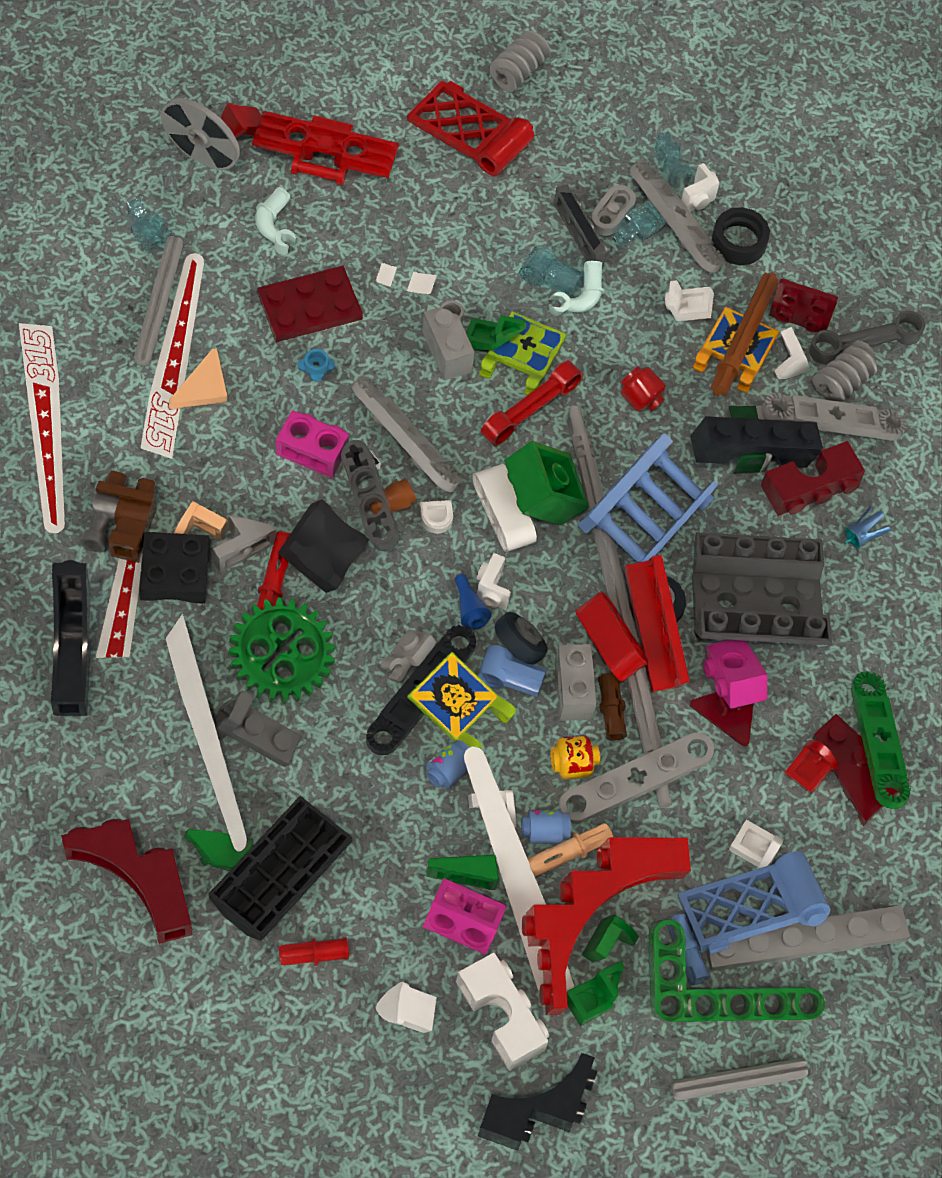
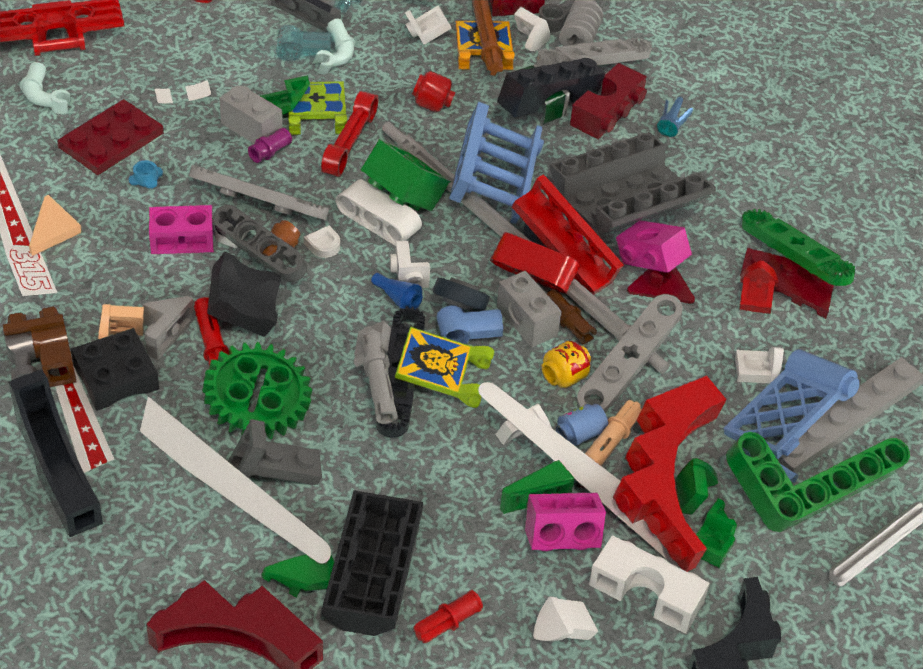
camera: 25 degrees left, 15 degrees down
(393, 680) = (377, 366): none -> light grey pin
(446, 382) = (267, 146): none -> magenta pin
(447, 765) = (466, 414): medium blue brick -> none

